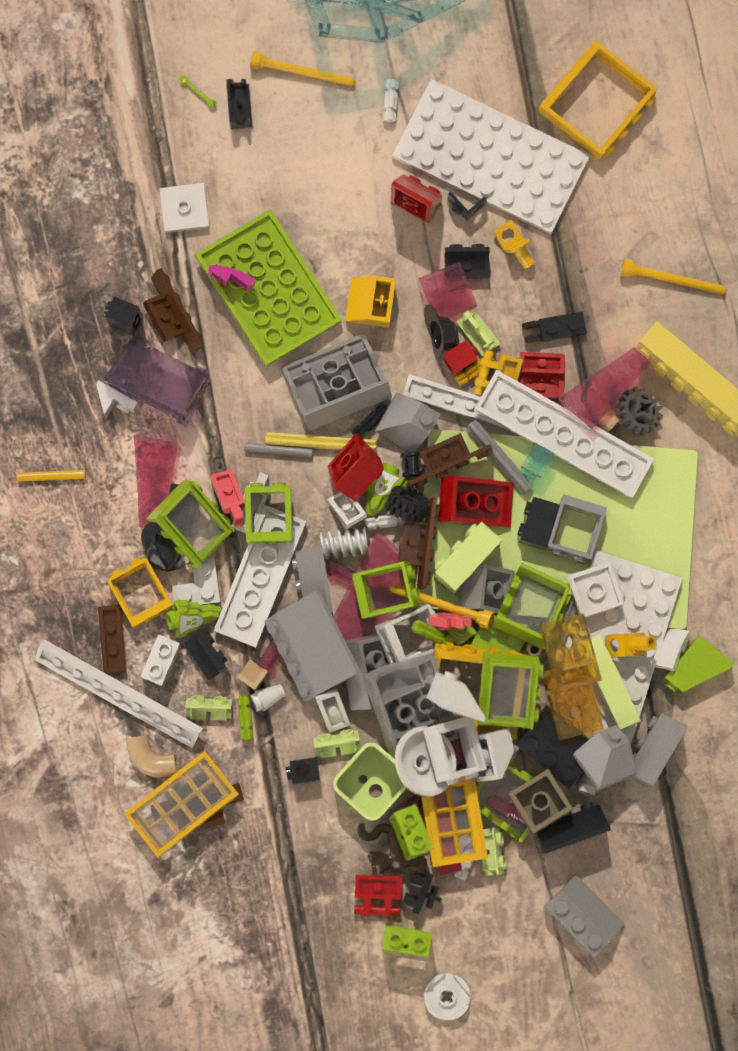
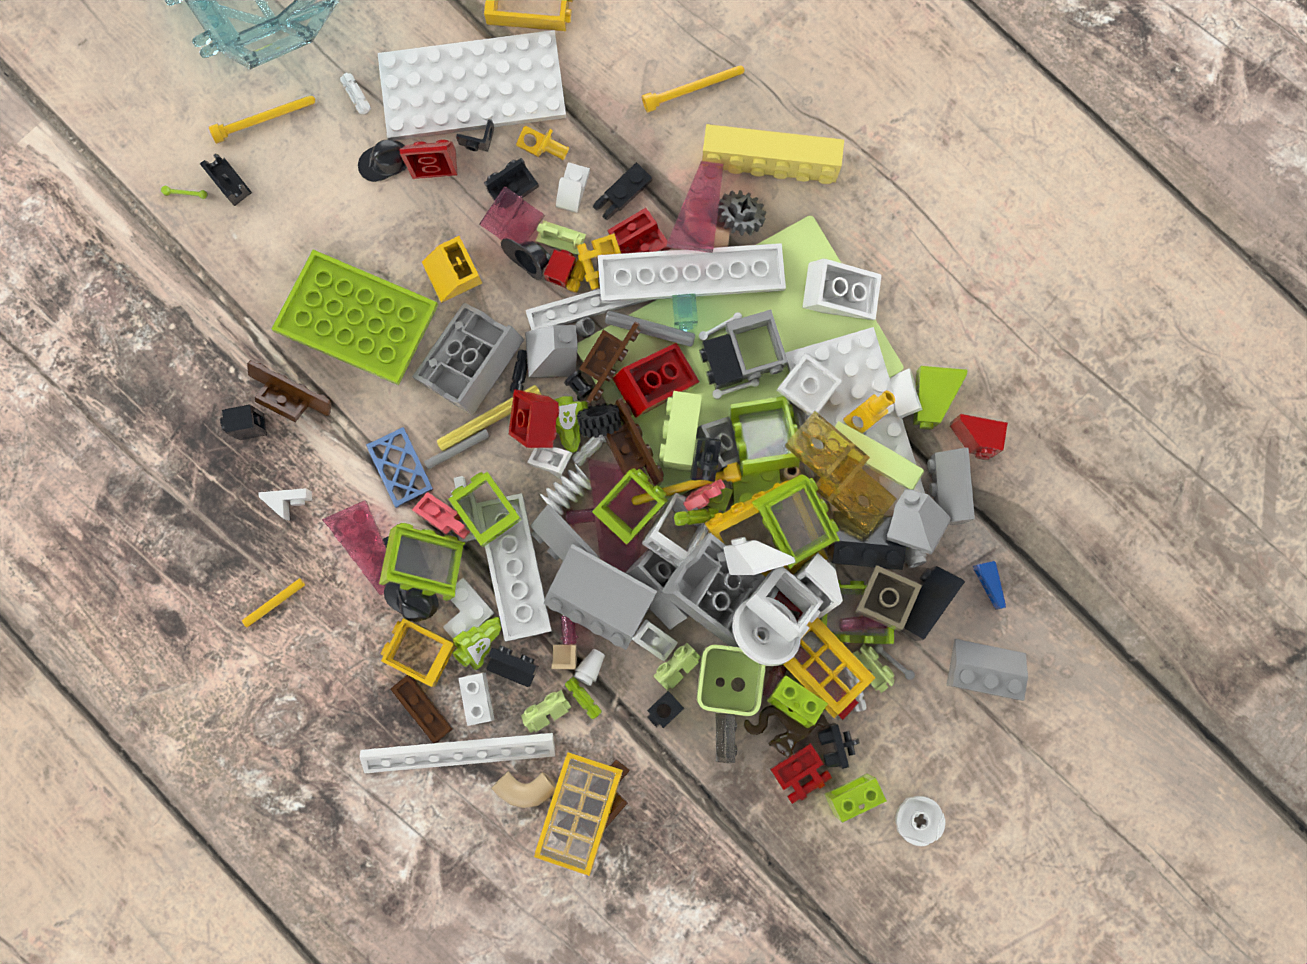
camera: 30 degrees left, 0 degrees up
(158, 380) = (312, 457): windscreen -> none
(184, 207) = (237, 297): white plate -> none
(226, 274) = (309, 327): dark pink slope -> none
(239, 424) = (408, 449): none -> medium blue window
(340, 820) = (725, 738): none -> clear smoke plate
(375, 171) = (381, 161): none -> black piece
(448, 420) = (585, 327): none -> light grey hinge
(469, 593) = (705, 459): none -> black hips
(515, 297) = (572, 187): none -> white slope
(518, 547) = (717, 393): none -> white hinge
(518, 877) = (909, 674): none -> light grey hinge
(540, 492) = (704, 335): none -> white hinge
(636, 844) = (990, 580): none -> blue slope
(677, 530) = (841, 290): none -> white slope
(708, 724) = (980, 435): none -> red slope

